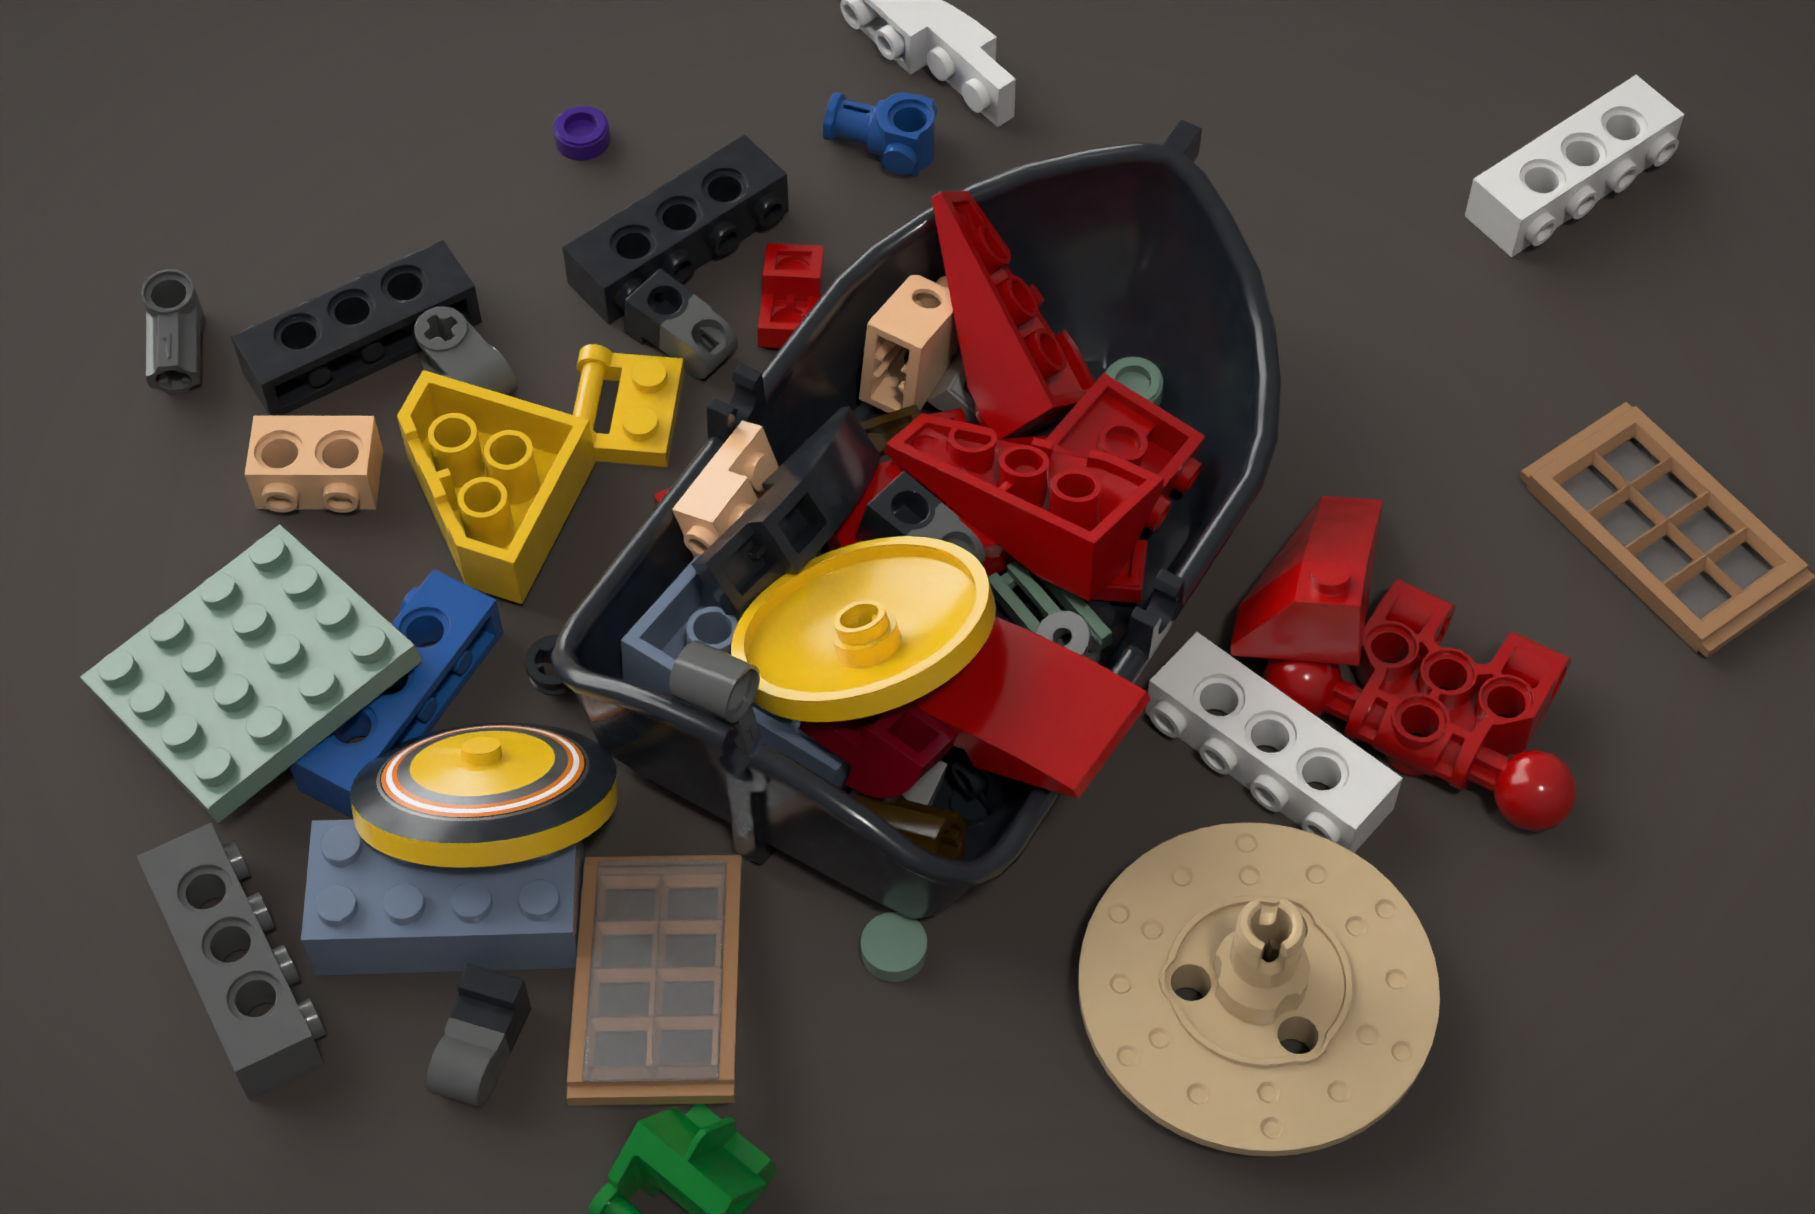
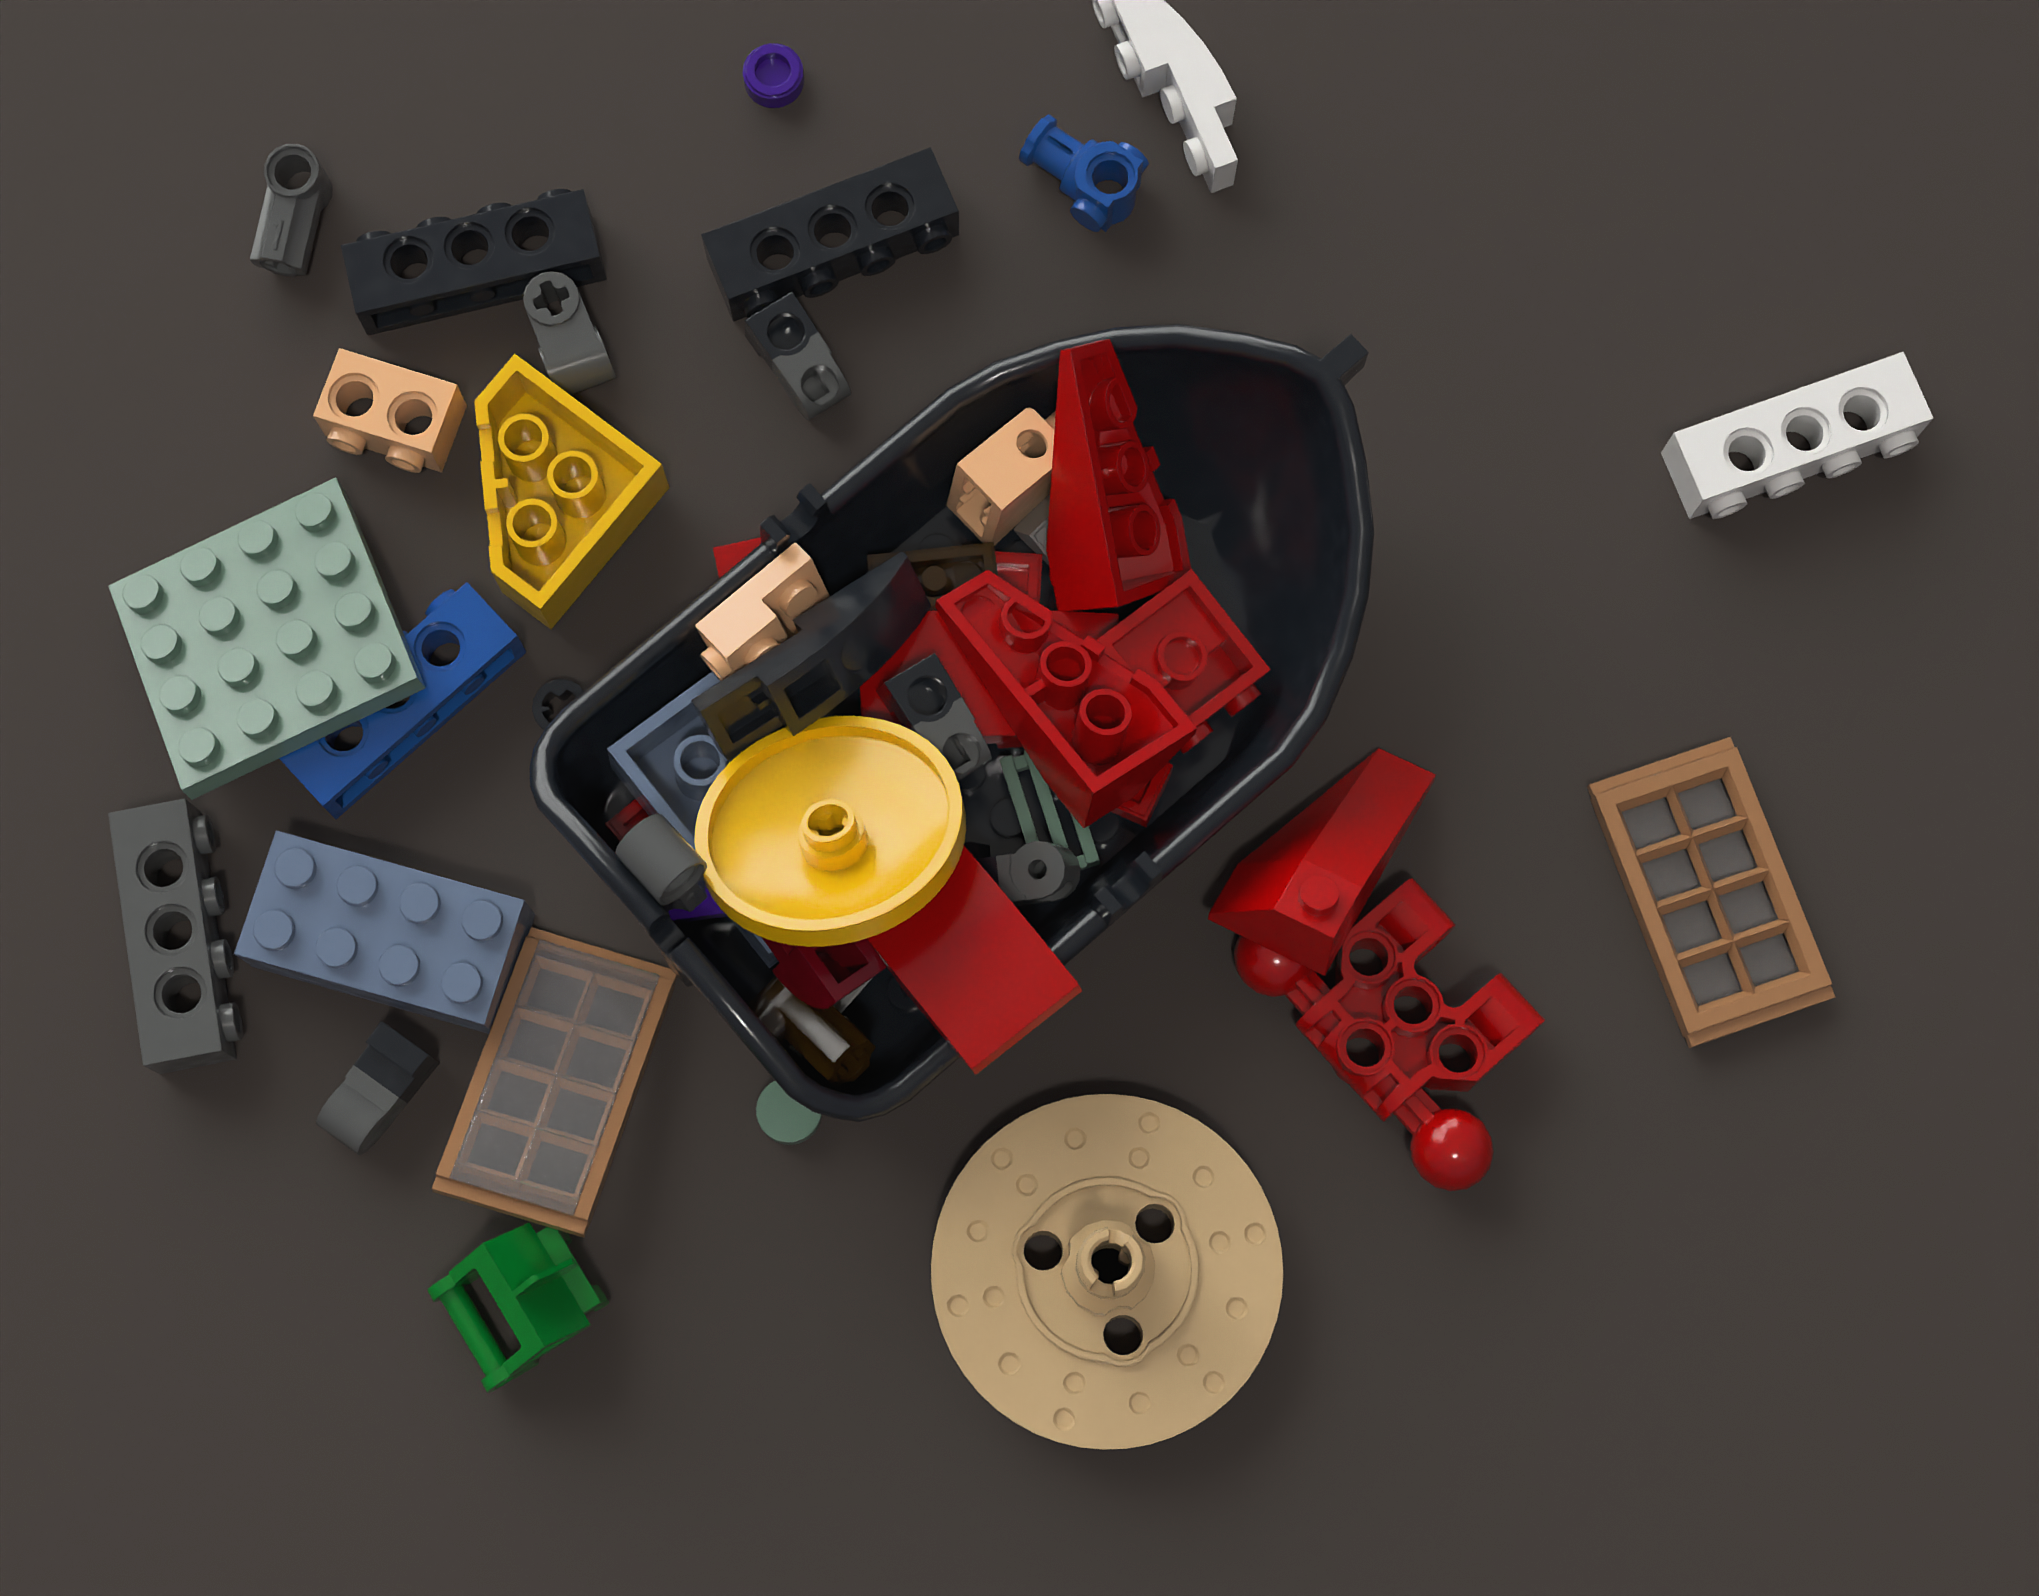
camera: 15 degrees right, 20 degrees up
(484, 794) = (440, 855): dish -> none
(643, 407) = (735, 437): yellow plate -> none
(789, 290) = (924, 346): red slope -> none
(1140, 376) = (1228, 575): sand green tile -> none
(1260, 714) = (1179, 924): white brick -> none

